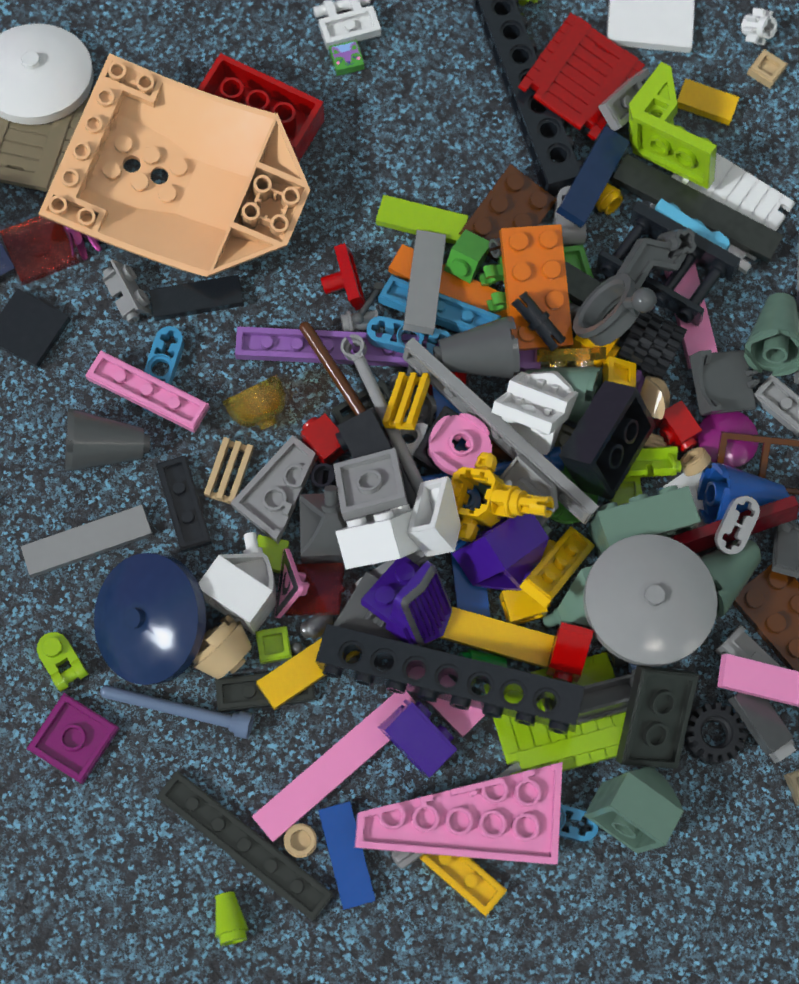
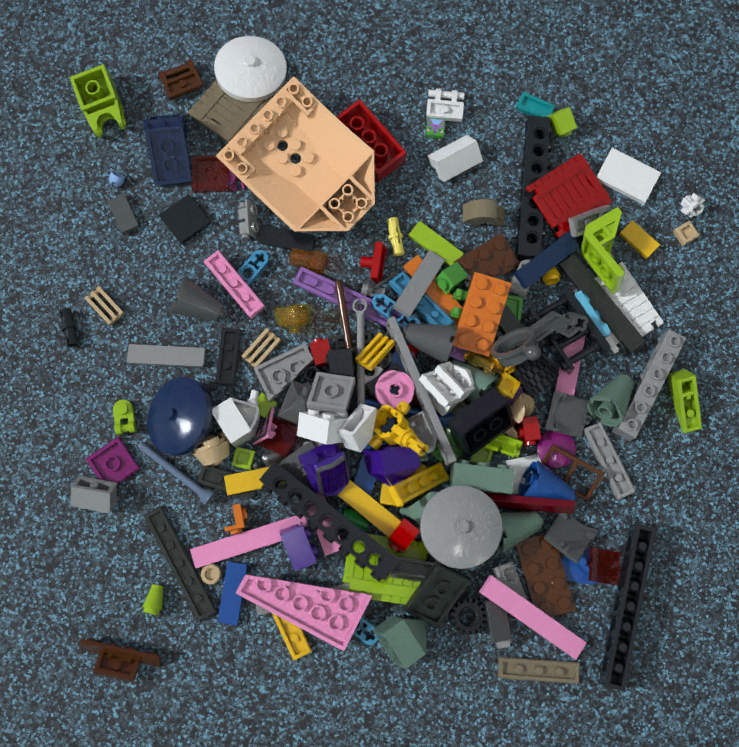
camera: 25 degrees right, 5 degrees up
(64, 796) = (93, 494): none -> light grey brick
(253, 311) = (313, 261): none -> clear orange piece
(308, 731) = (240, 516): none -> orange bracket
(358, 230) = (395, 236): none -> light yellow pin
(396, 86) = (456, 158): none -> white piece
(470, 145) = (483, 211): none -> dark tan brick
(538, 321) = (472, 336): black pin -> none
(695, 461) = (529, 454): tan tile -> none
(743, 529) = (536, 508): light grey beam -> none

